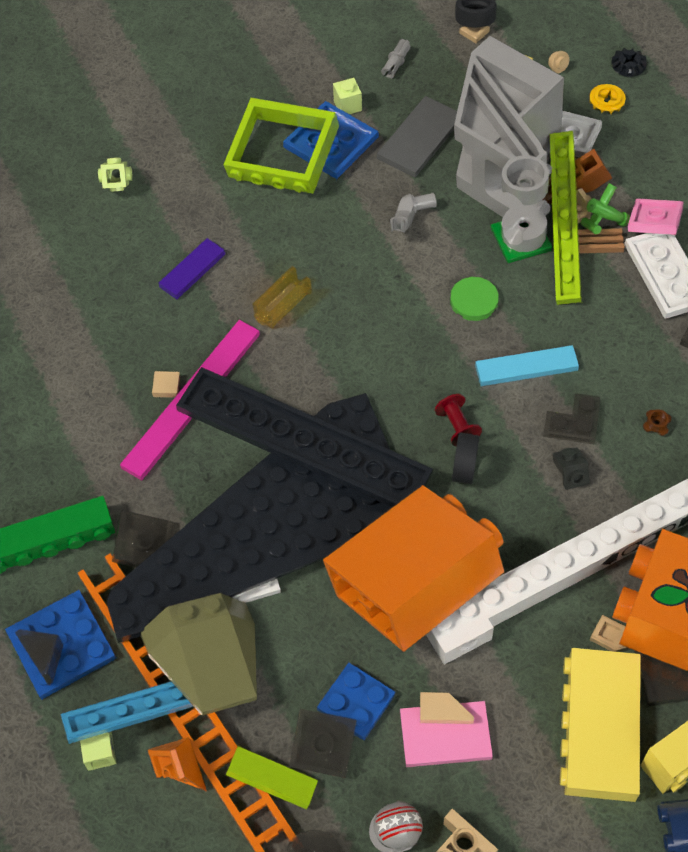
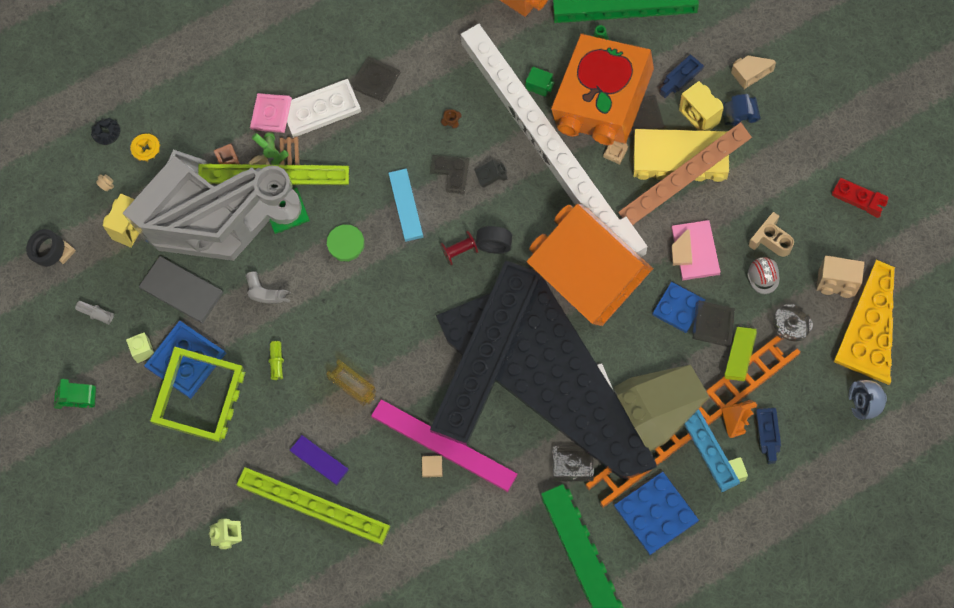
camera: 90 degrees left, 10 degrees up
(43, 650) = (671, 516): clear smoke slope -> none
(134, 262) = (313, 506): none -> lime plate
(148, 807) = (768, 433): none -> dark blue hinge
(296, 39) = (74, 395): none -> green tile
(321, 225) = (276, 360): none -> lime axle
(565, 723) = (685, 174): none -> nougat plate

